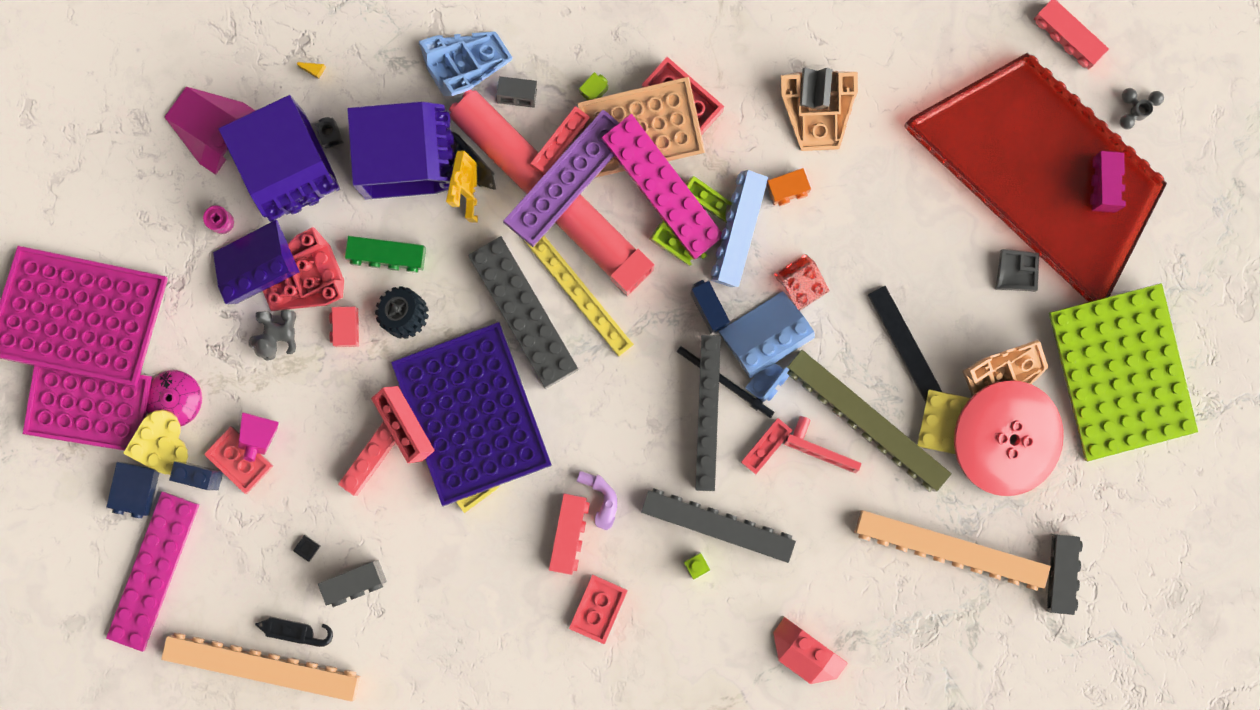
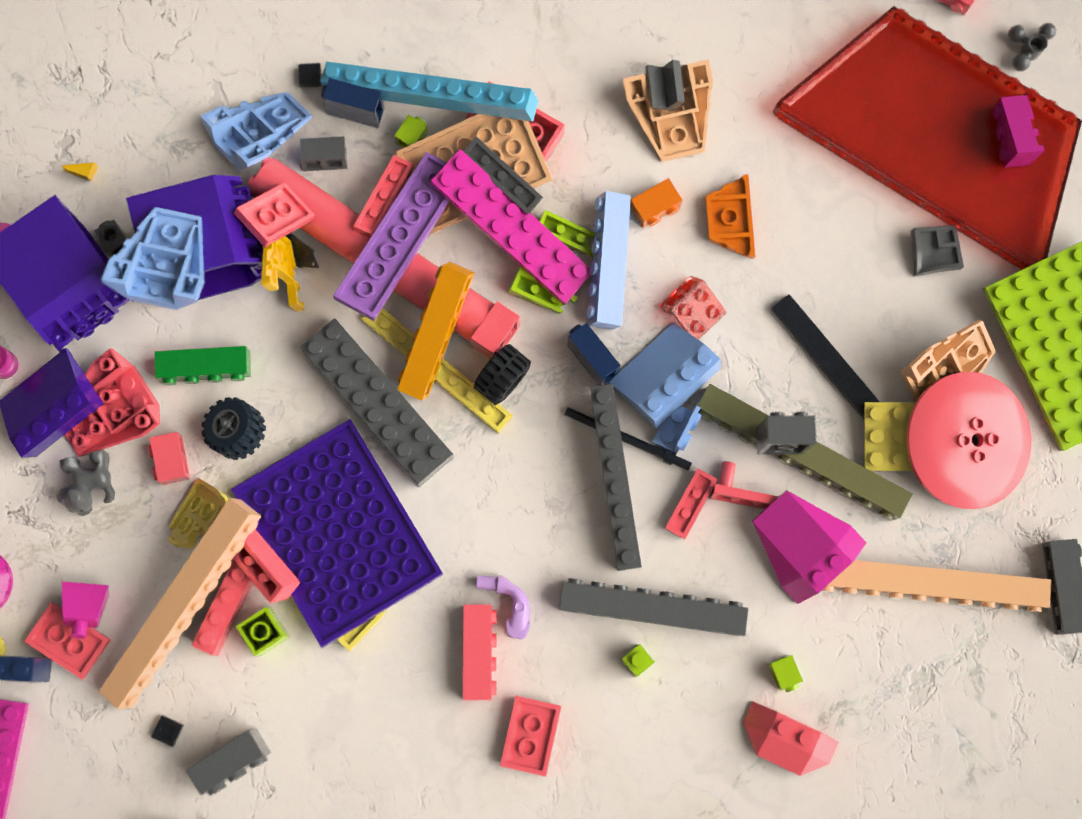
camera: 15 degrees left, 5 degrees down
(335, 449) = (180, 604): none -> light nougat brick
(362, 377) = (196, 514): none -> light yellow plate
(368, 168) = (160, 261): none -> light blue wedge
(397, 483) = (263, 631): none -> lime head
(467, 142) = (274, 214): none -> coral plate
(517, 20) = (309, 75): none -> black tile
(549, 53) = (353, 102): none -> dark blue brick
(582, 263) = (435, 330): none -> light orange brick
(615, 57) = (438, 91): none -> medium azure brick
(631, 309) = (502, 374): none -> black tyre
(663, 142) = (503, 176): none -> dark grey plate
(815, 599) = (785, 673): none -> lime brick
(849, 210) = (731, 217): none -> orange wing
(854, 498) = (805, 545): none -> dark pink wedge
(855, 406) = (786, 433): none -> dark grey brick

